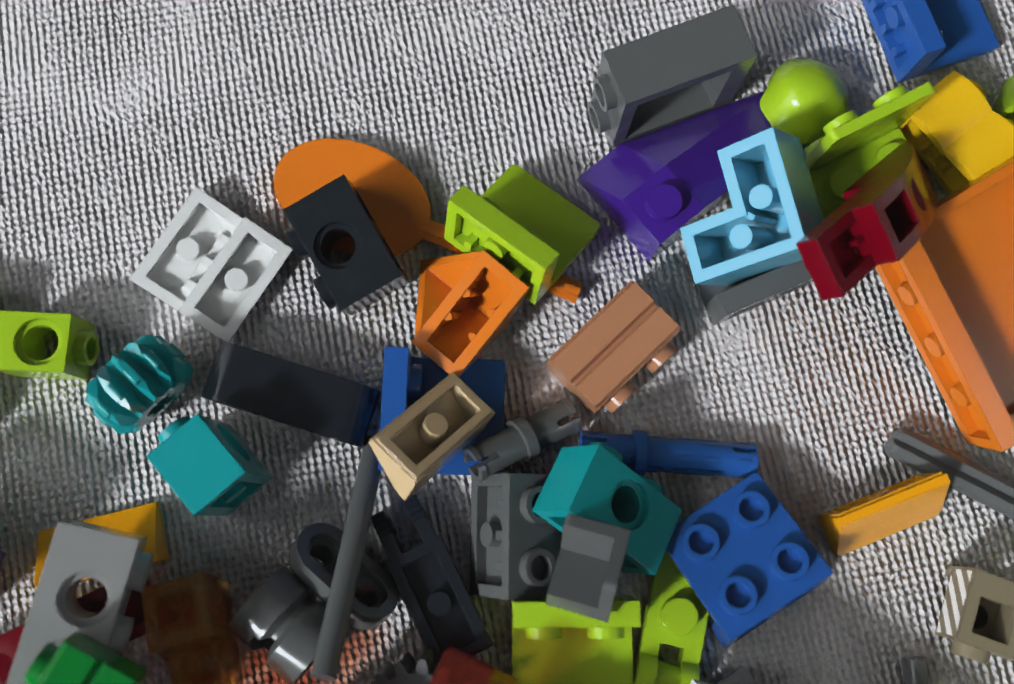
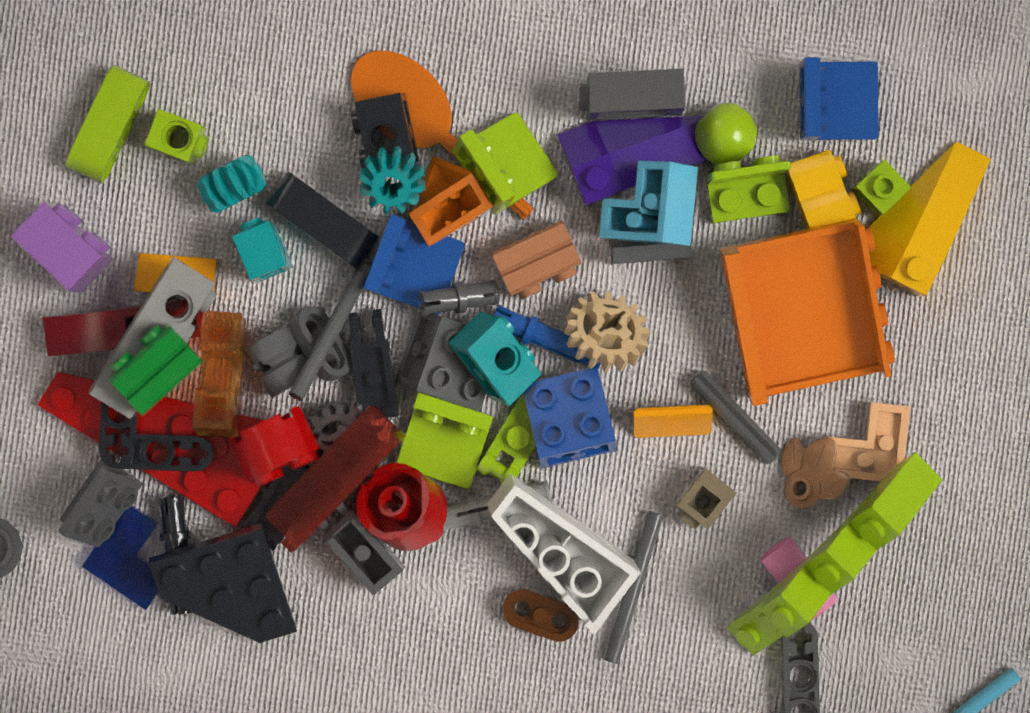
camera: 25 degrees right, 10 degrees up
(211, 264) = (295, 115): white slope -> none
(366, 319) = (391, 166): none -> teal gear
(430, 434) = (402, 276): tan slope -> none
(588, 567) = (468, 387): dark grey panel -> none
(775, 434) = (609, 332): none -> tan gear
(874, 226) = (721, 238): dark red slope -> none

